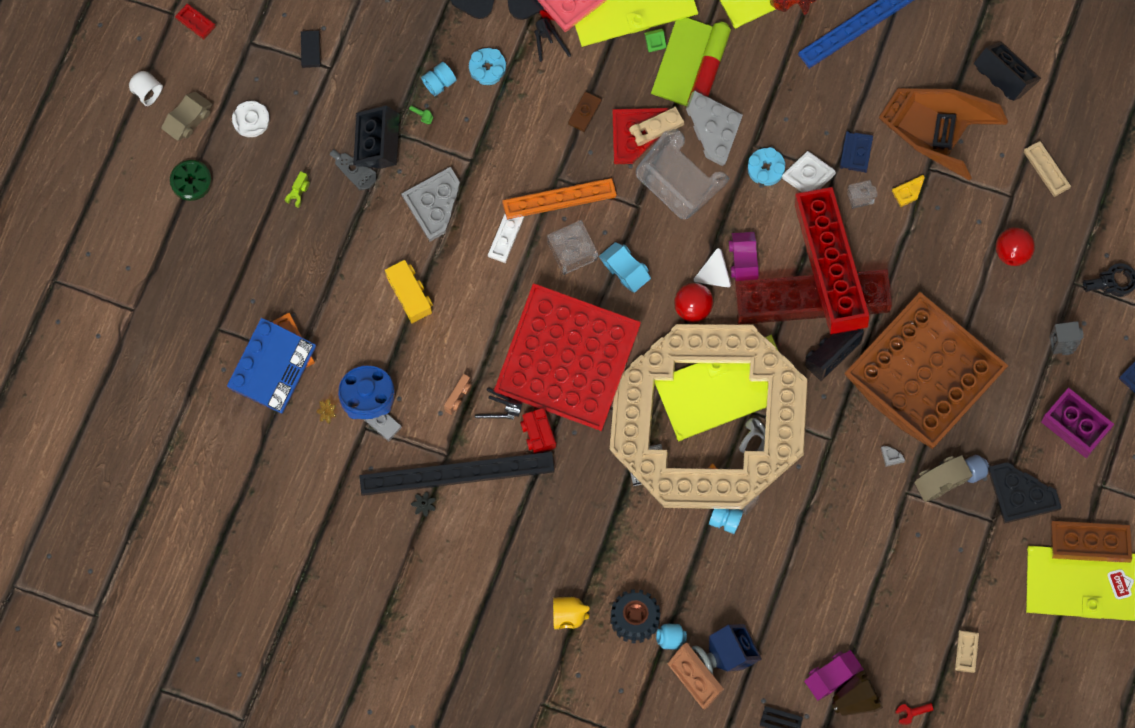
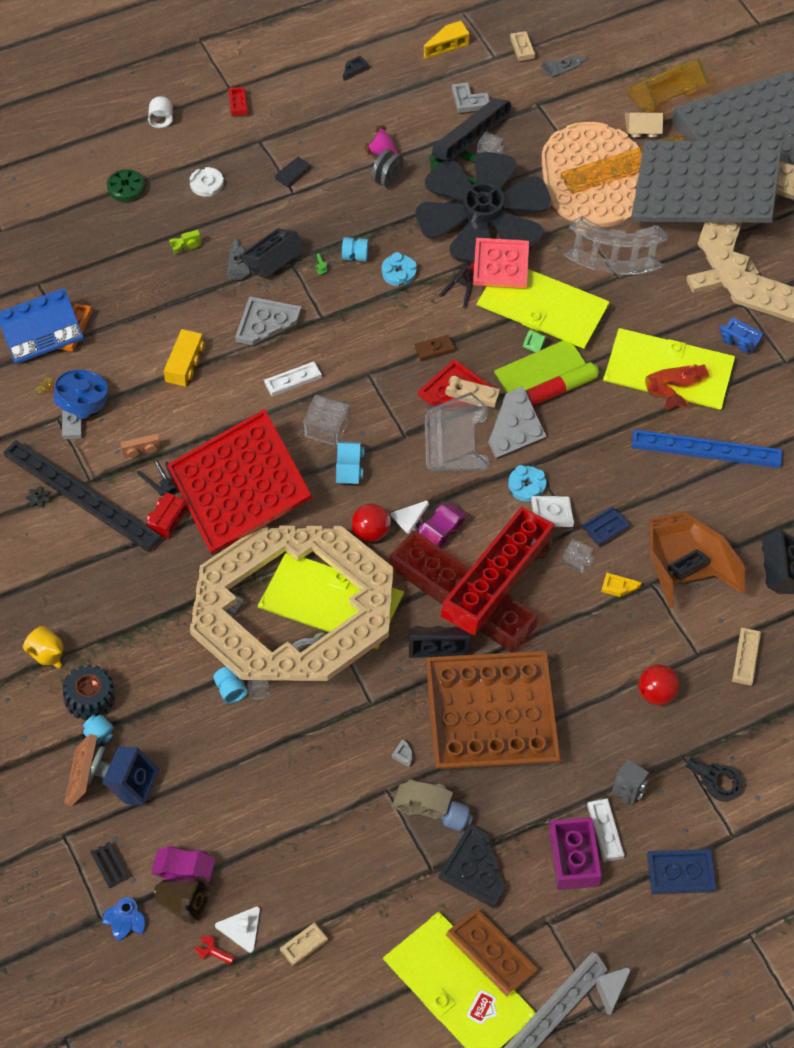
camera: 40 degrees right, 15 degrees down
(187, 116) = (166, 147): dark tan brick -> none
(559, 198) = (353, 384): orange tile -> none
(913, 679) = (241, 928): none -> white piece
(1067, 379) = (605, 830): none -> white tile

